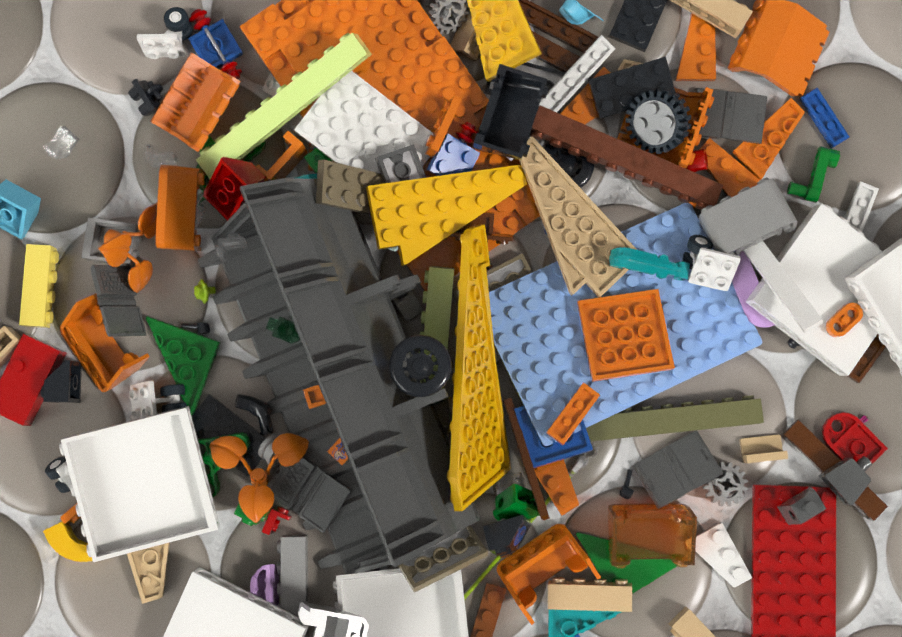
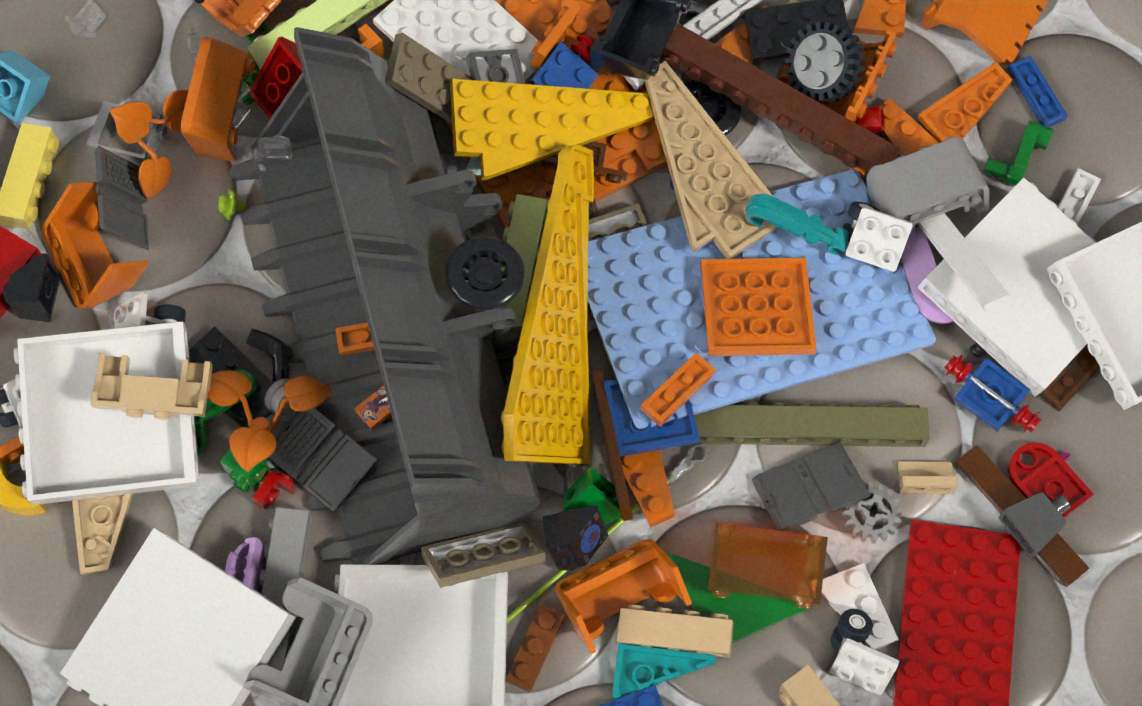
camera: 10 degrees right, 15 degrees down
(171, 473) = (151, 395): none -> tan bracket
(187, 358) = (195, 280): green tile -> none
(203, 328) = (220, 246): black hand -> none
(283, 329) = (323, 251): clear green hips -> none
(625, 491) = (740, 509): black hand -> none
(721, 601) = (855, 660): none -> white plate
(735, 116) = (922, 75): dark grey piece -> none
(803, 506) = (973, 545): dark grey torso -> none
(807, 378) = (992, 394): none -> blue plate
(843, 320) = (1041, 318): orange plate -> none

